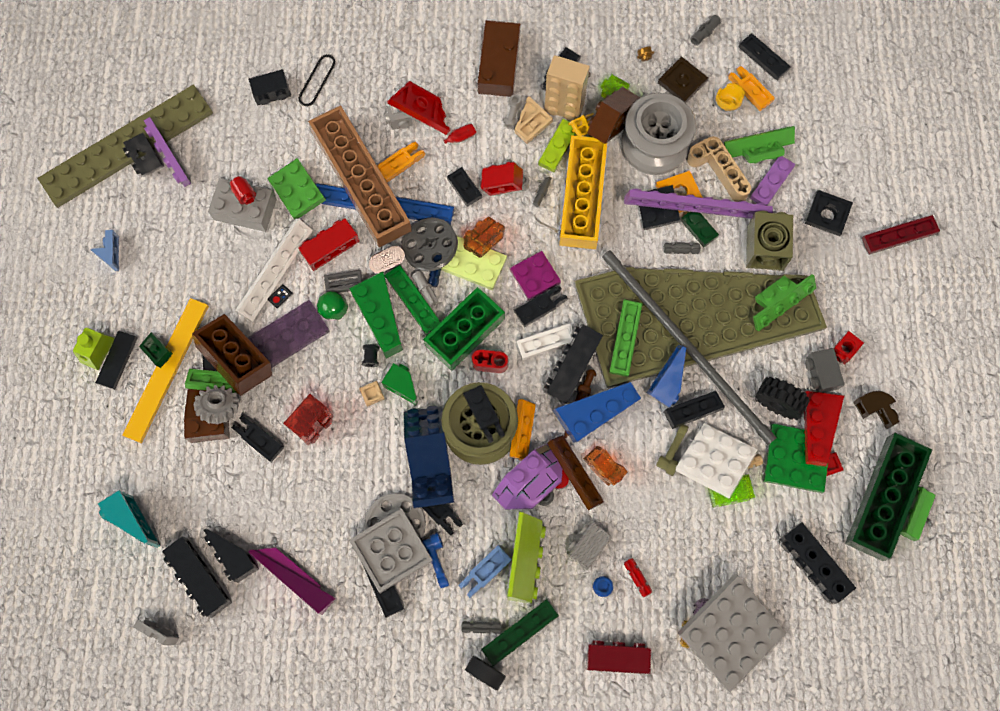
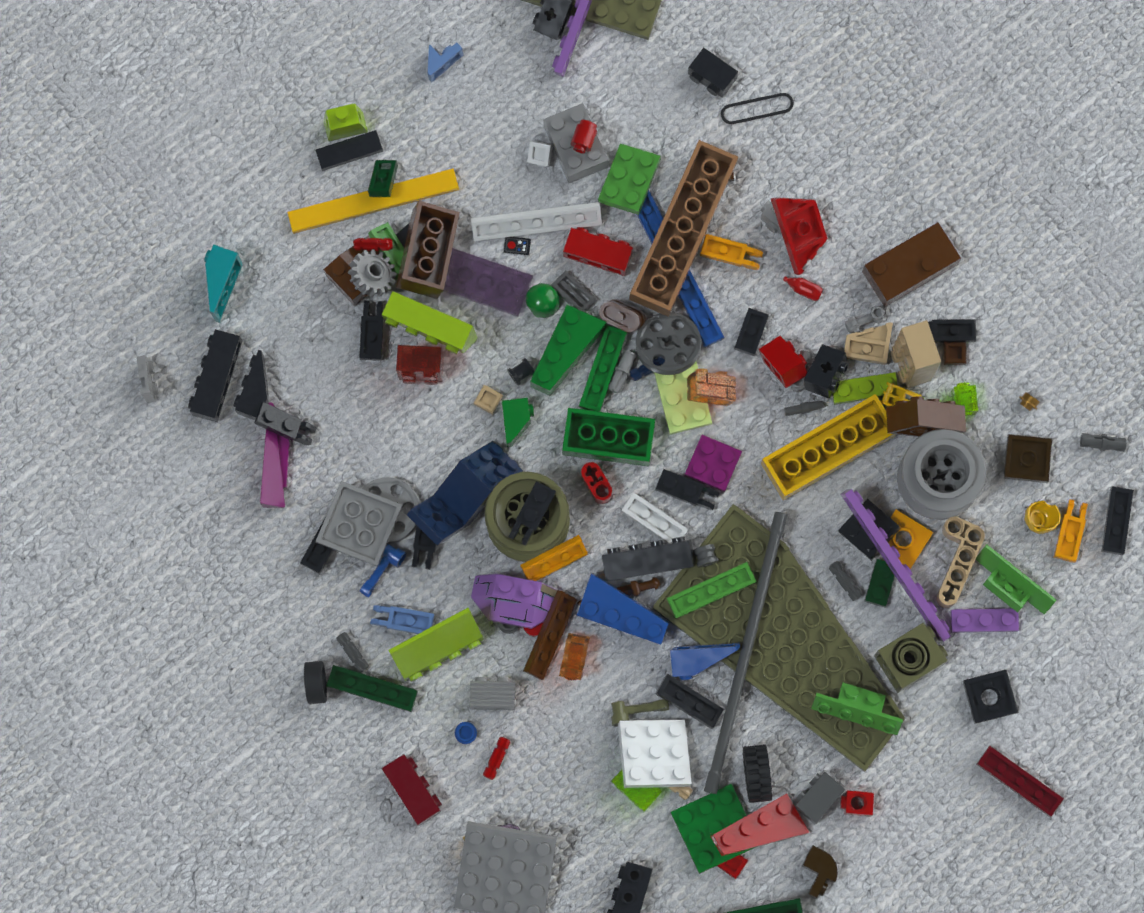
camera: 55 degrees right, 5 degrees up
(198, 385) = (373, 243): none -> red axle
(229, 233) = (539, 153): none -> white plate
(273, 552) = (283, 424): none -> black hinge
(284, 388) = (429, 323): none -> lime slope
(529, 158) = (825, 371): none -> black brick
(599, 323) = (705, 555): none -> dark grey wheel

